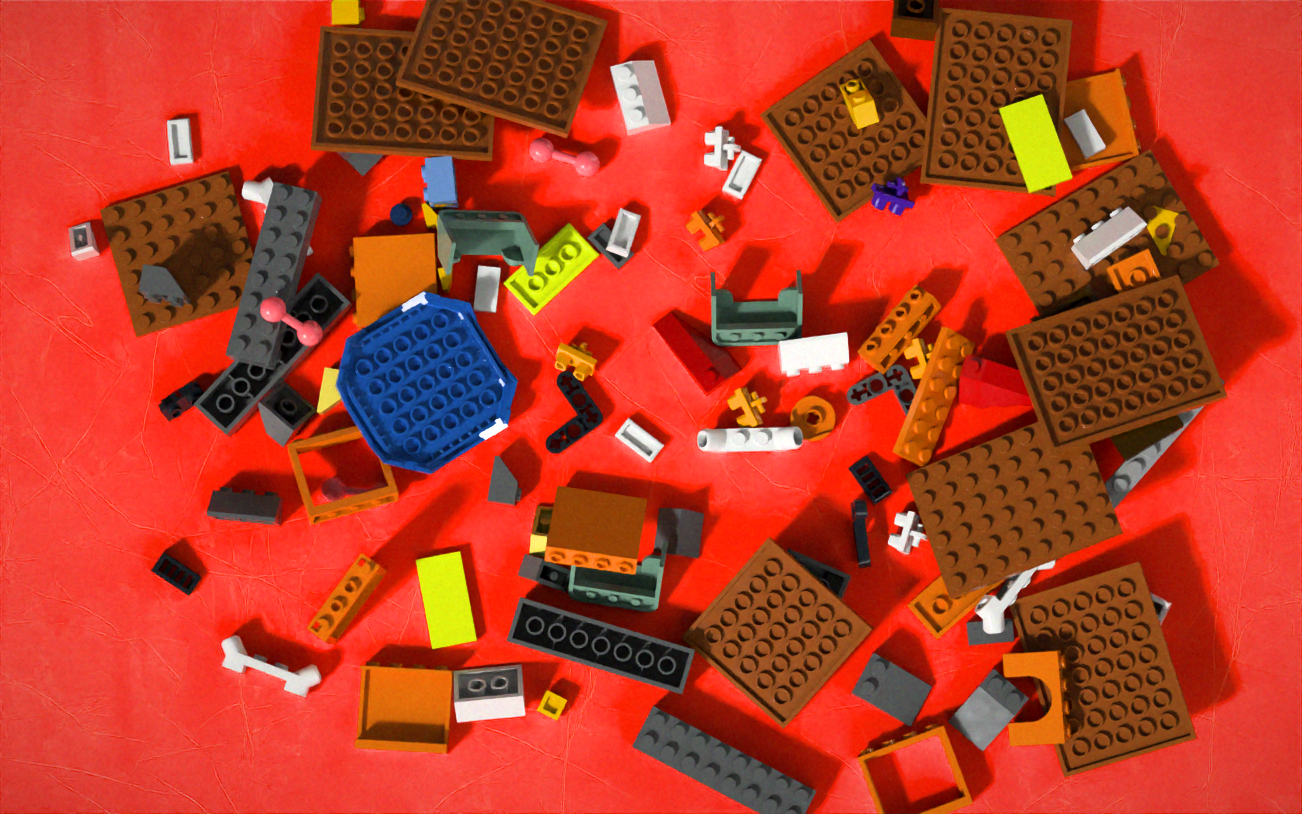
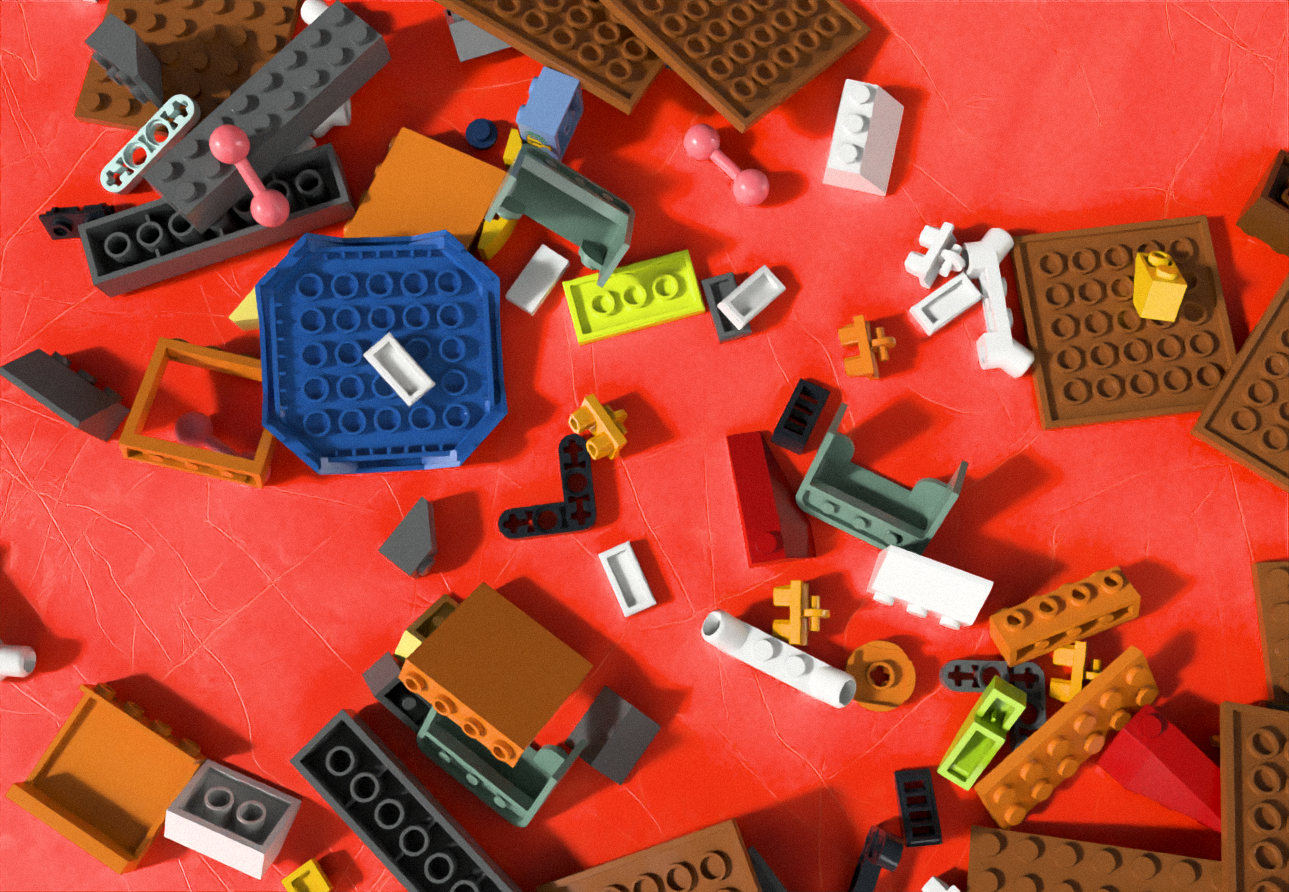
camera: 30 degrees right, 5 degrees down
(202, 331) = (146, 139): none -> light aqua beam
(285, 413) = (191, 300): dark grey slope -> none
(347, 600) = (104, 584): orange window -> none
(441, 388) = (399, 369): none -> white tile
(446, 600) = (253, 657): neon yellow tile -> none
(690, 304) = (793, 436): none -> black slope
(750, 137) = (996, 346): none -> white plate
(885, 419) = (982, 732): none -> lime slope
(895, 193) = (1147, 442): dark purple hips -> none

